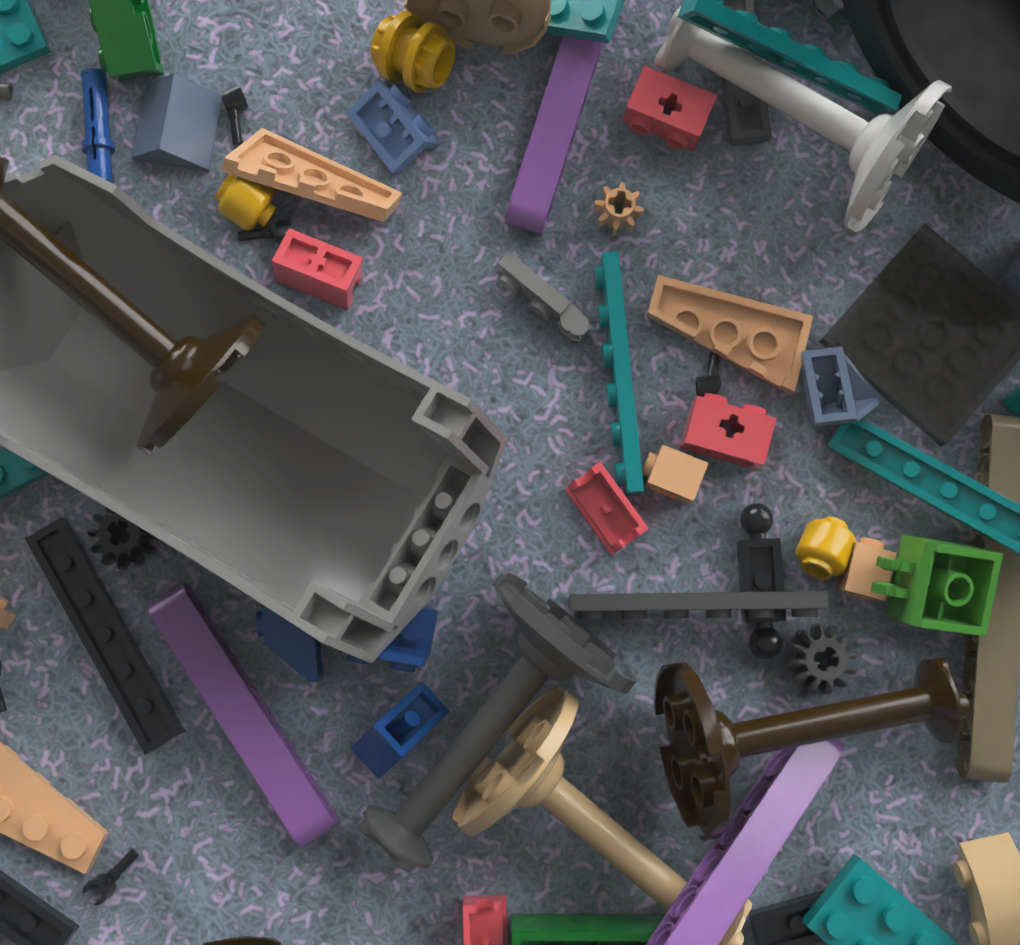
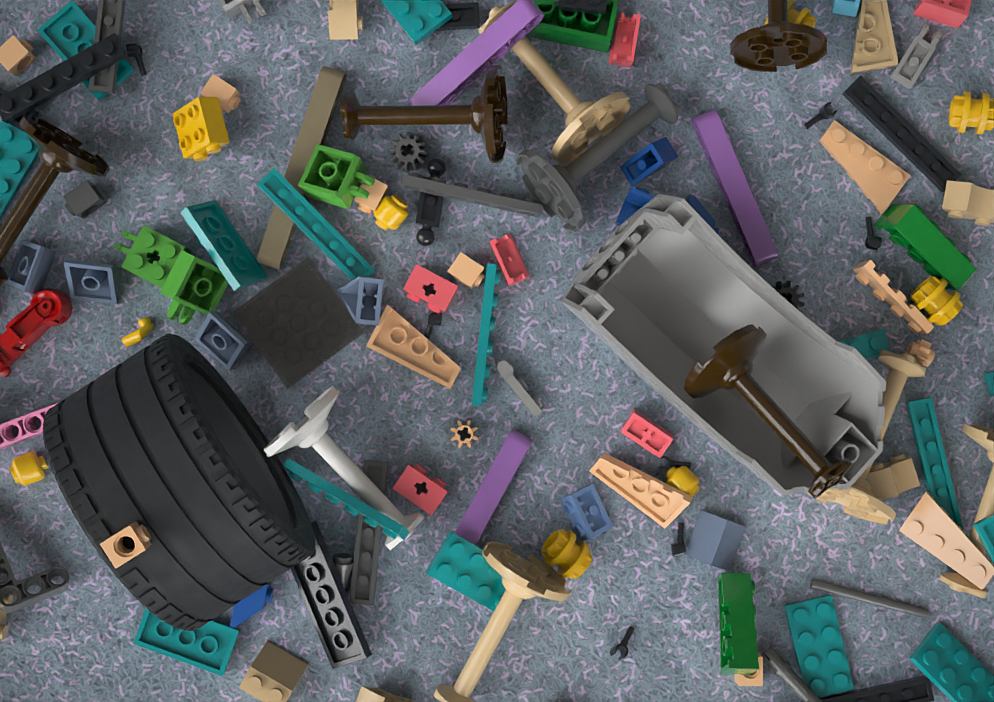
camera: 160 degrees left, 5 degrees up
(97, 139) = (763, 544): blue pin -> none
(105, 635) = (804, 247): black plate -> none

